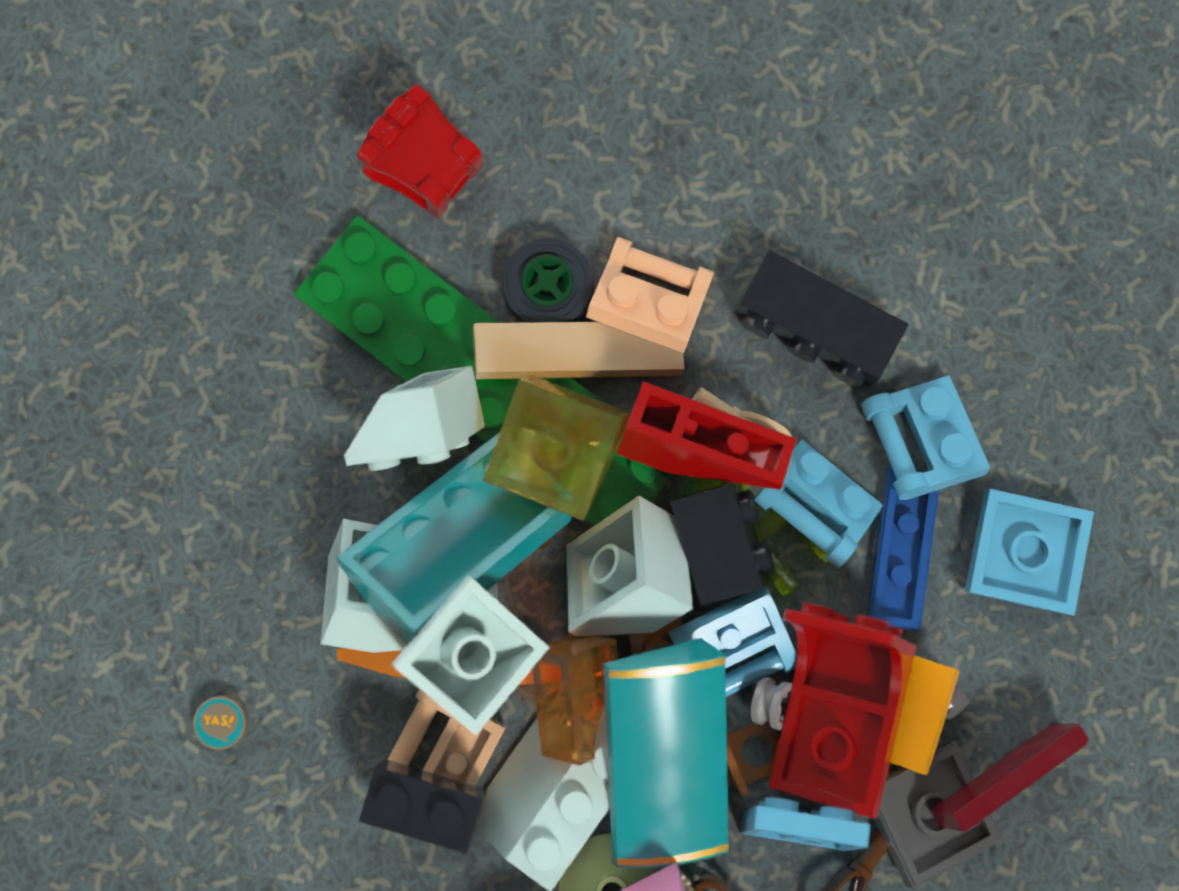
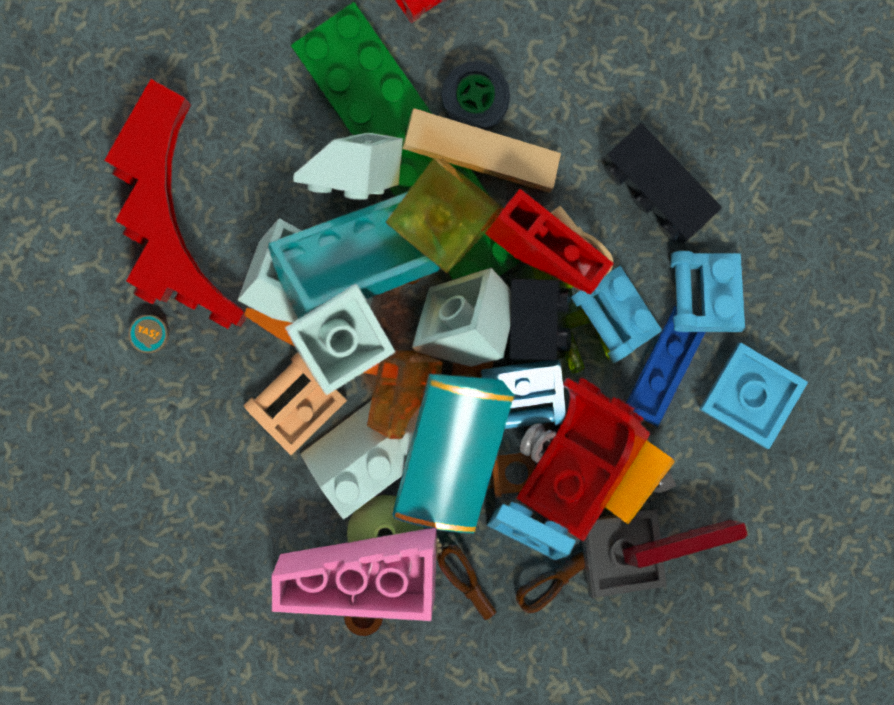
camera: 10 degrees right, 5 degrees up
(215, 625) = (146, 154): none -> red arch
(423, 805) = (274, 433): black brick -> none
(645, 307) = (539, 135): light nougat plate -> none

